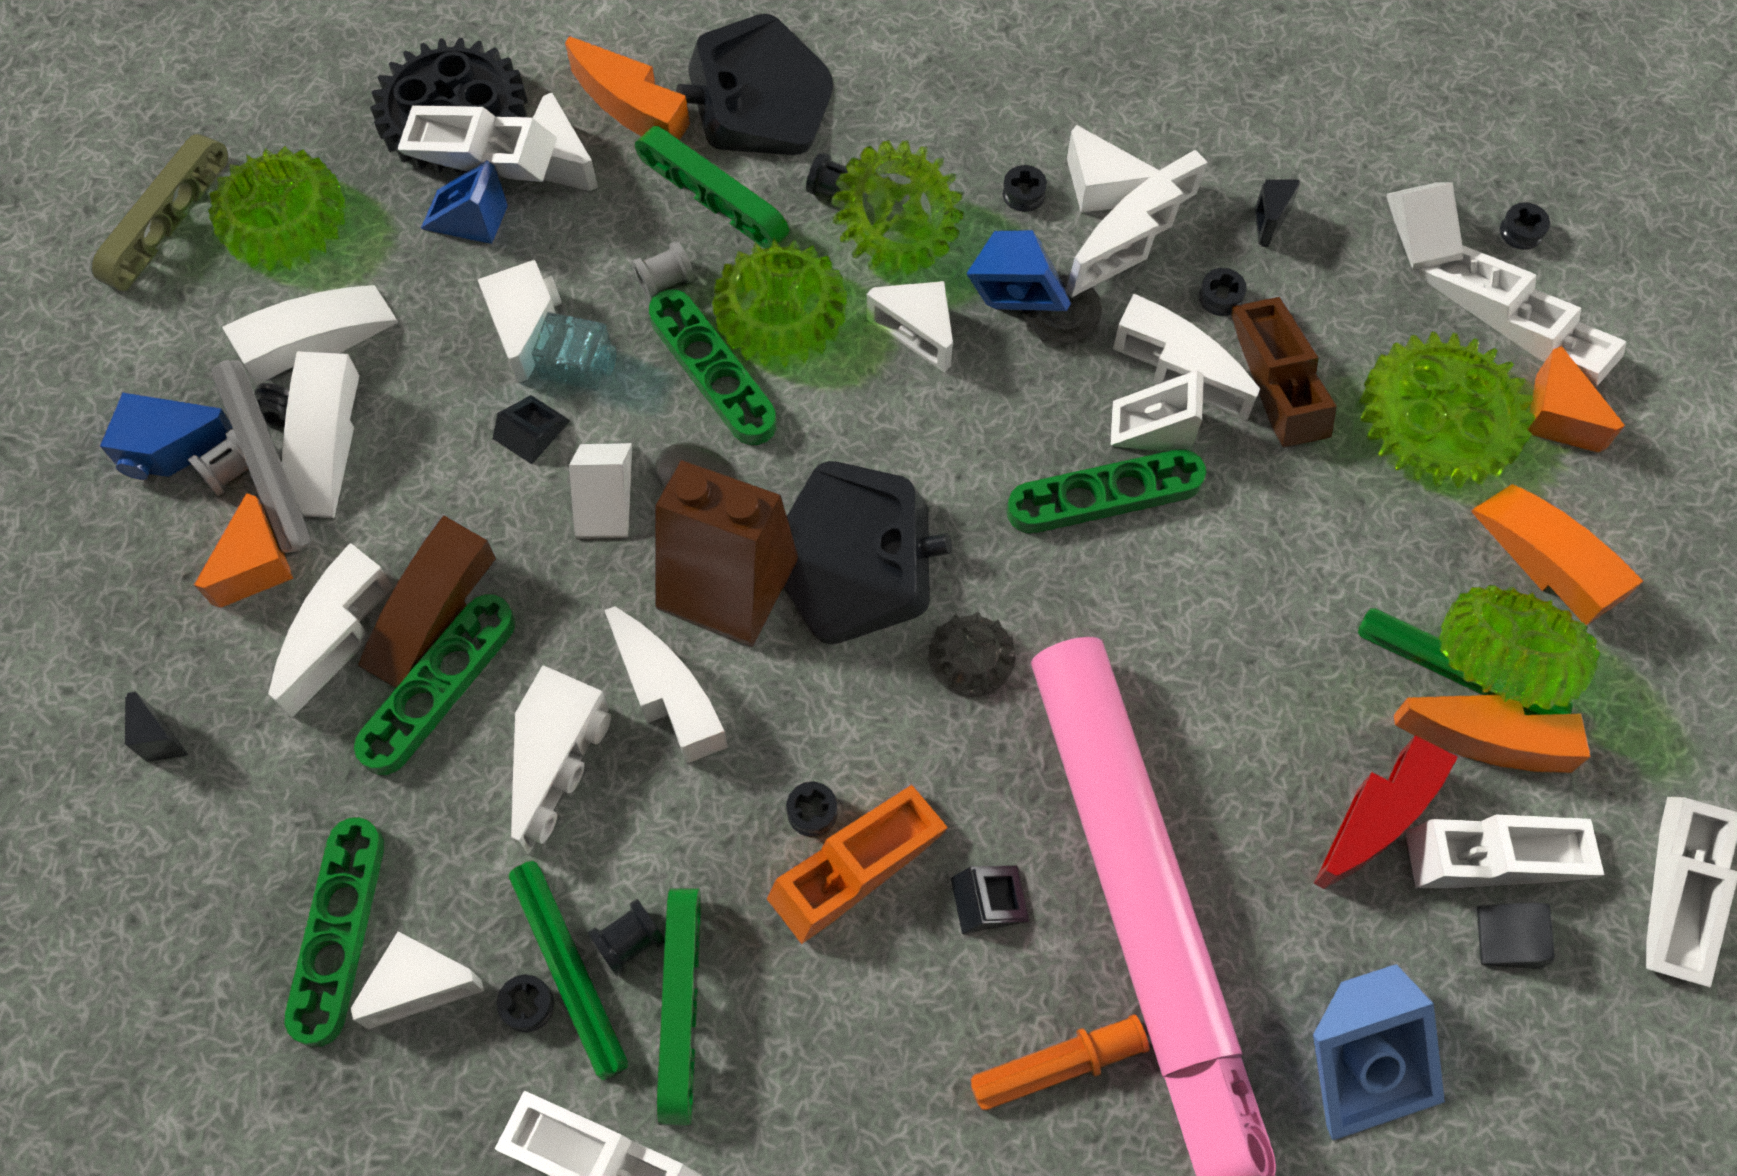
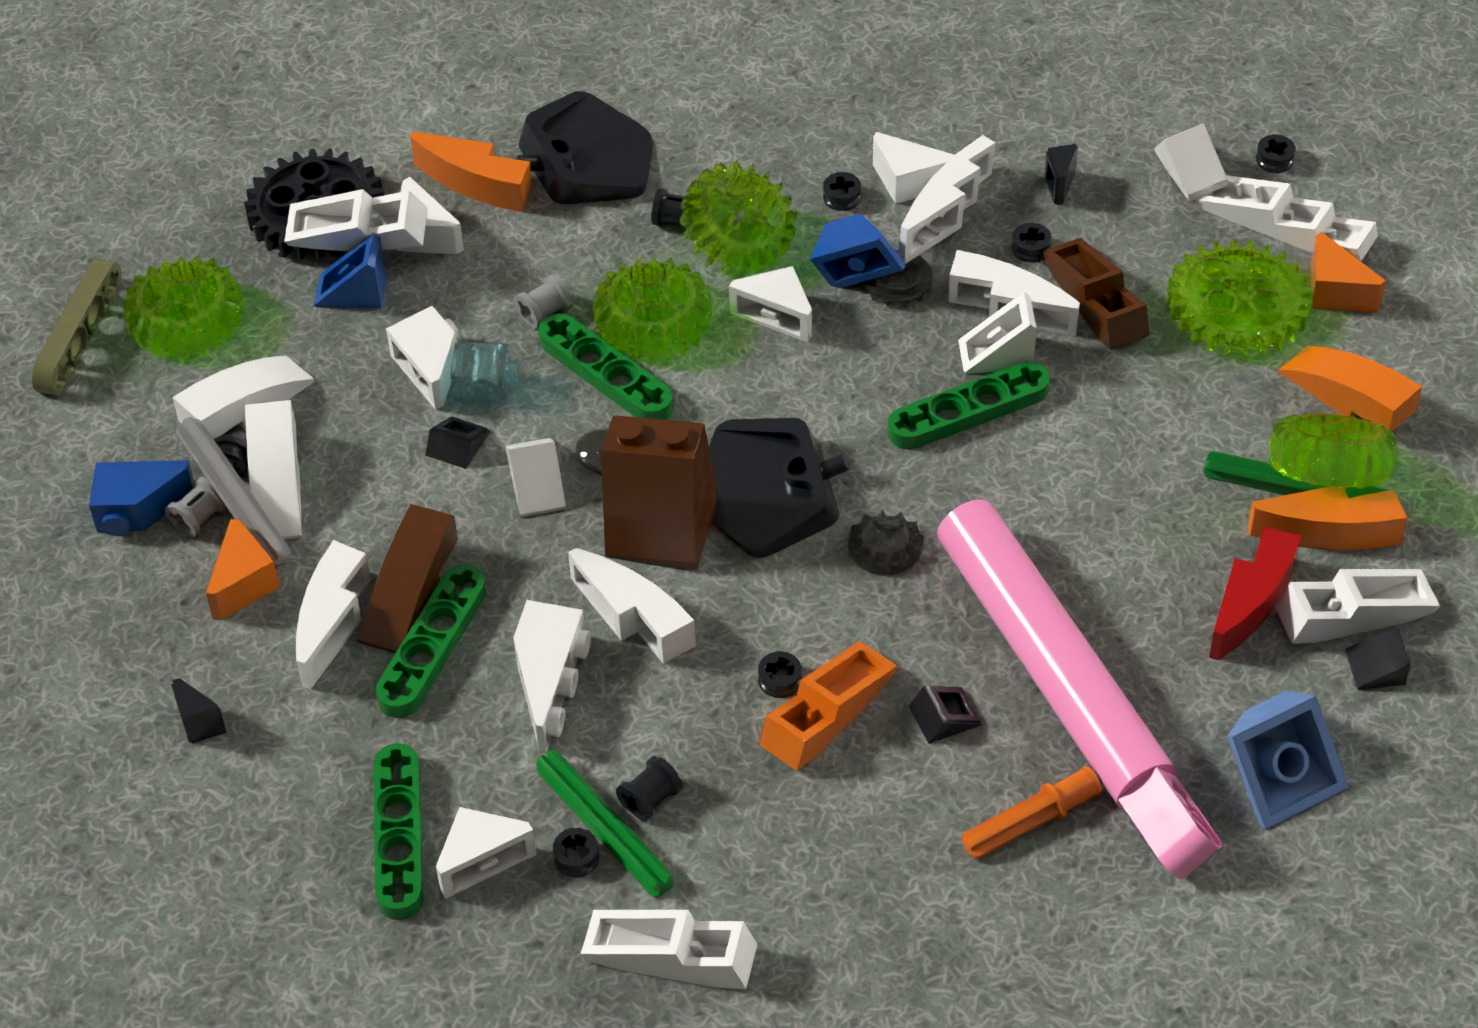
camera: 10 degrees left, 15 degrees down
(678, 1007) = (708, 828): green beam -> none
(712, 186) = (527, 216): green beam -> none

